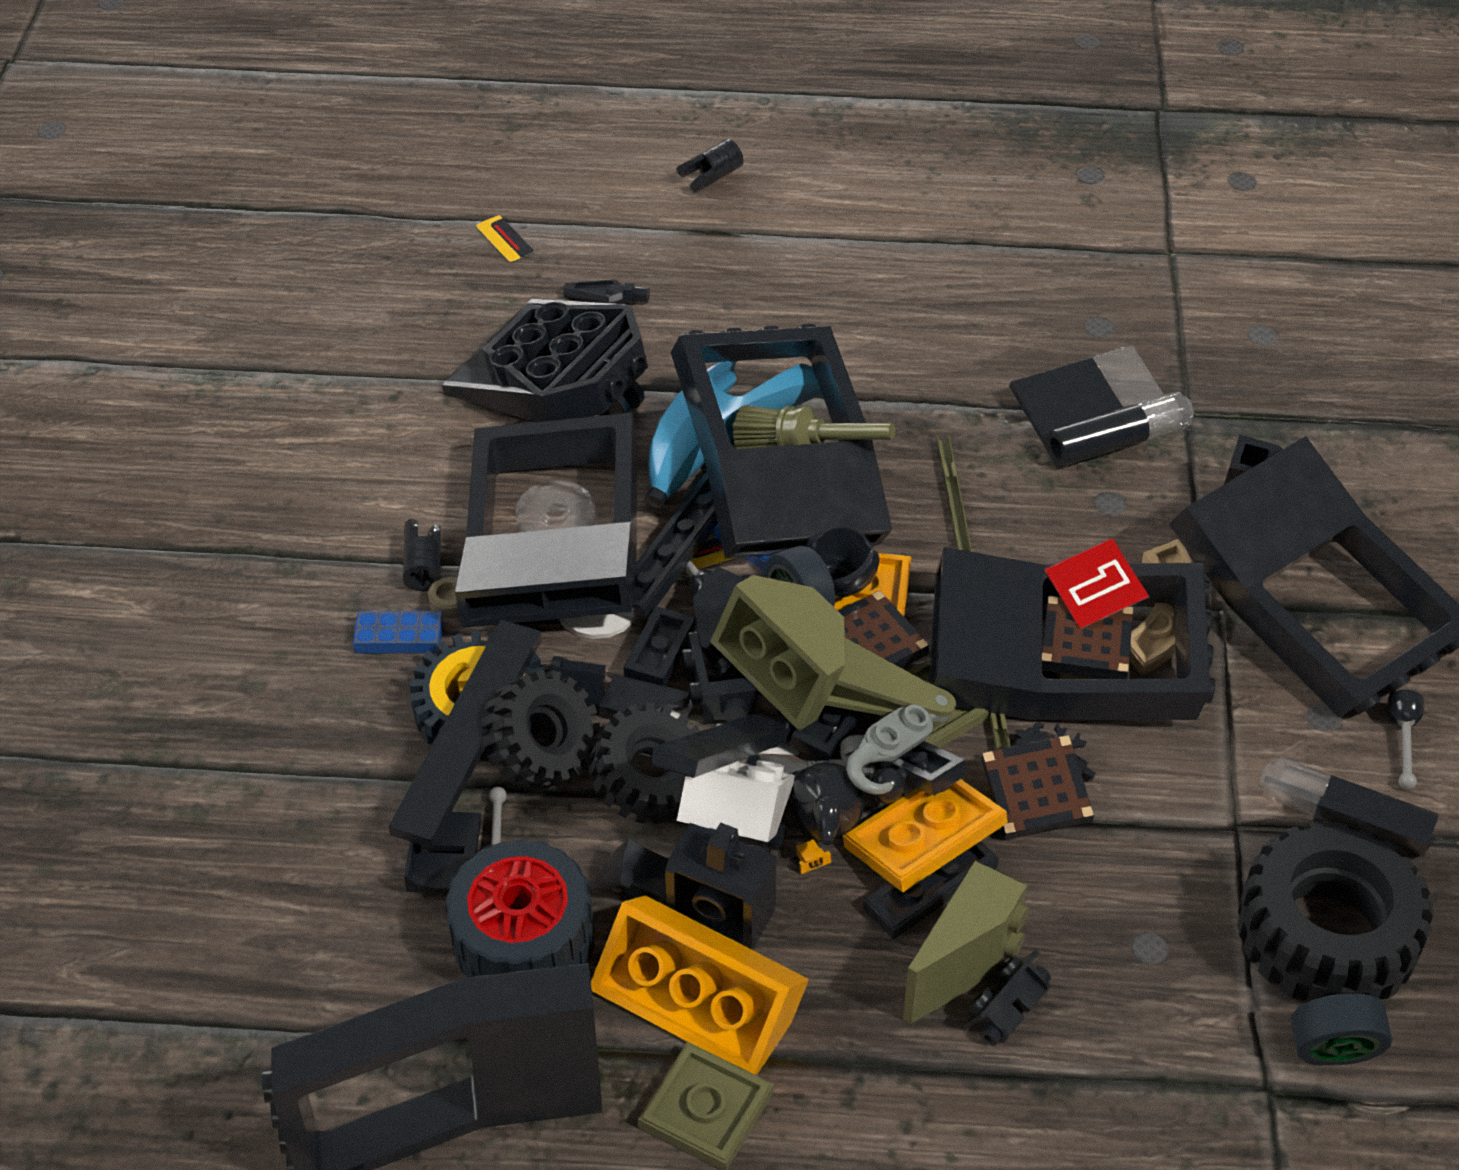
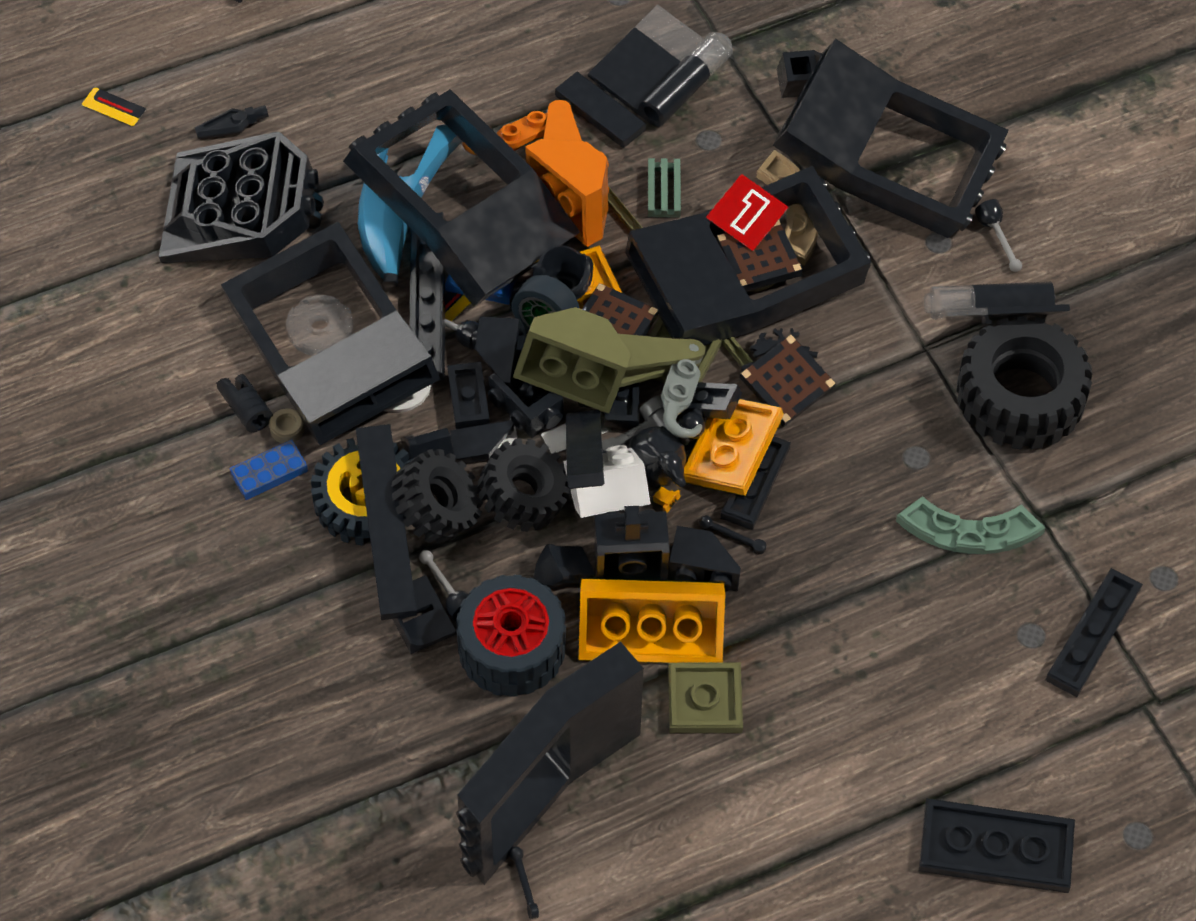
camera: 30 degrees left, 10 degrees up
(796, 426) = (473, 184): olive piece -> none
(800, 938) = (702, 558): none -> black slope
(886, 959) = (758, 546): none -> black hinge
(919, 463) = (565, 164): none -> orange slope
(967, 941) = (813, 496): olive slope -> none
(994, 1009) = (852, 521): black hinge -> none
(1004, 425) = (600, 109): none -> black tile
(1035, 509) = (664, 167): none -> sand green tile
(1182, 1081) = (970, 536): none -> sand green tile
(1341, 1029) = (1067, 457): black wheel -> none

